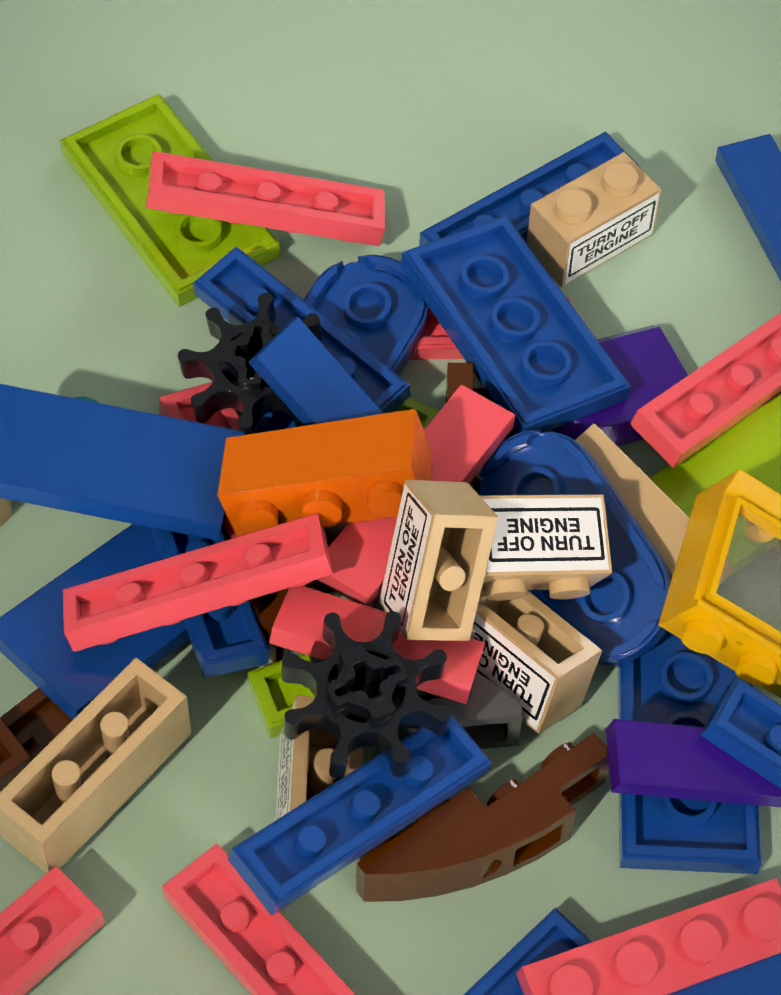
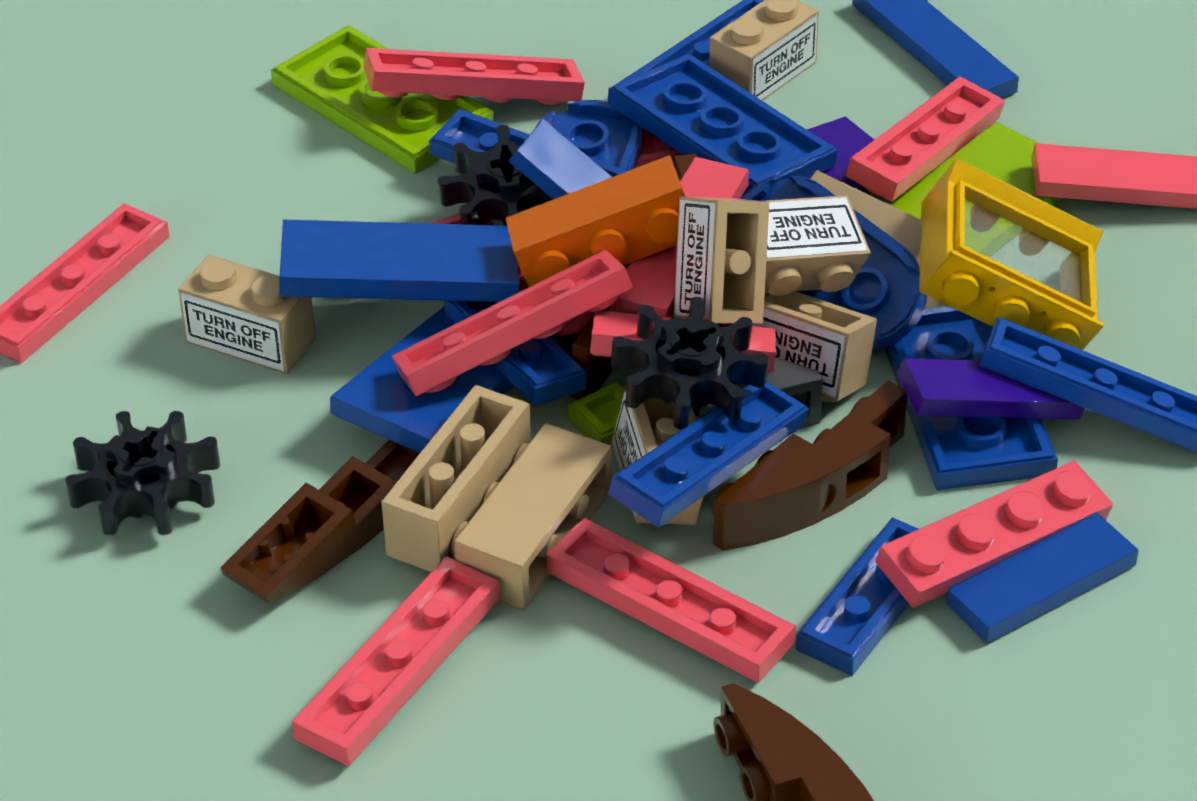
camera: 10 degrees left, 15 degrees down
(165, 822) = (532, 508): none -> tan brick

